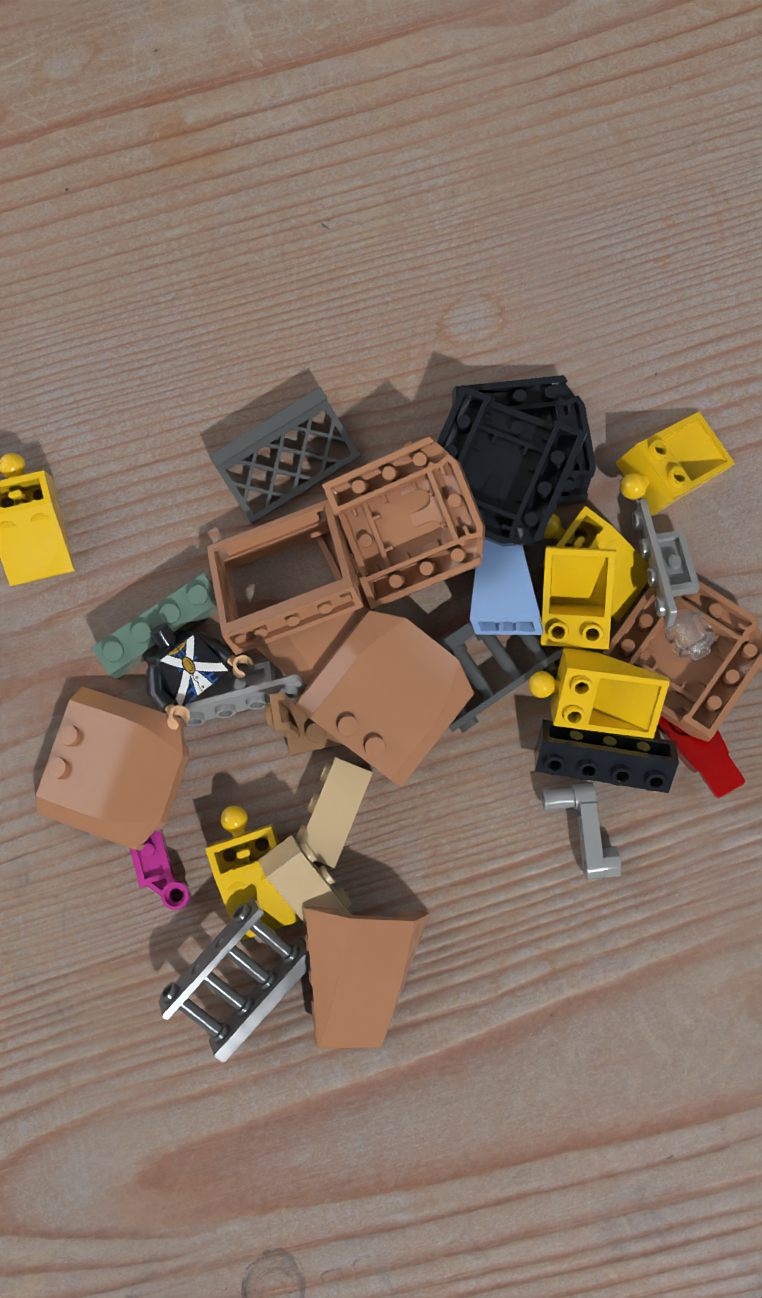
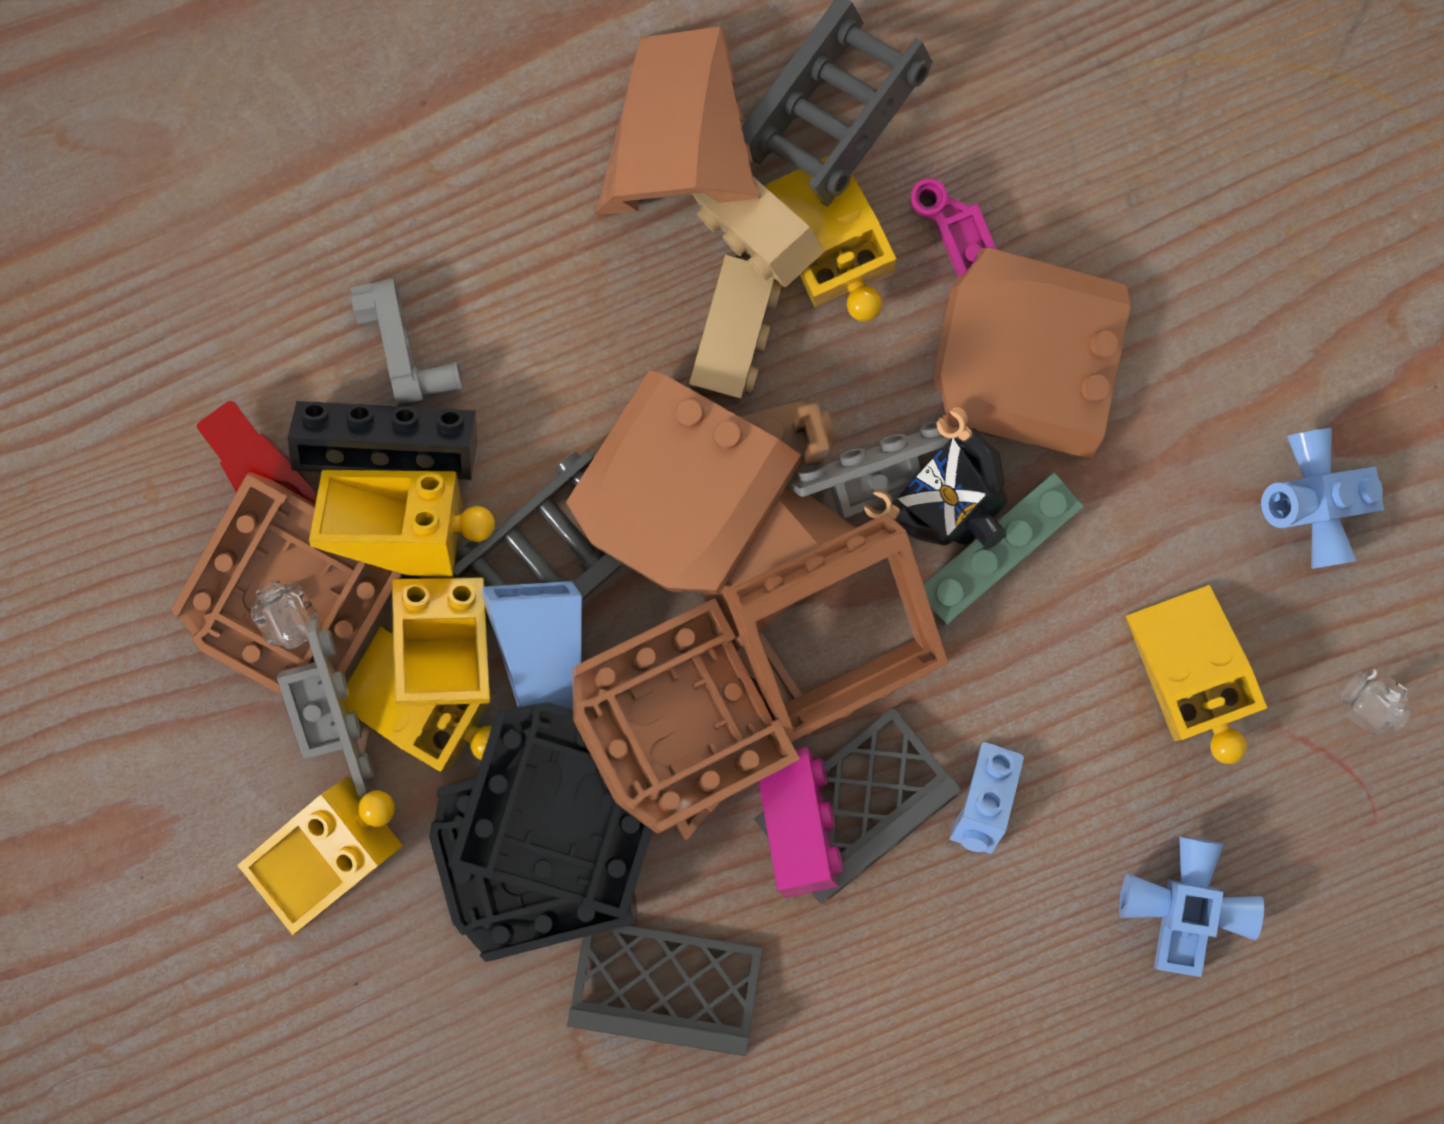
camera: 175 degrees right, 5 degrees up
(57, 358) = (1190, 908): none -> light blue brick
(190, 449) = (988, 799): none -> light blue bracket
(328, 439) = (800, 827): none -> dark pink brick
(441, 316) = (659, 1026): none -> dark grey fence

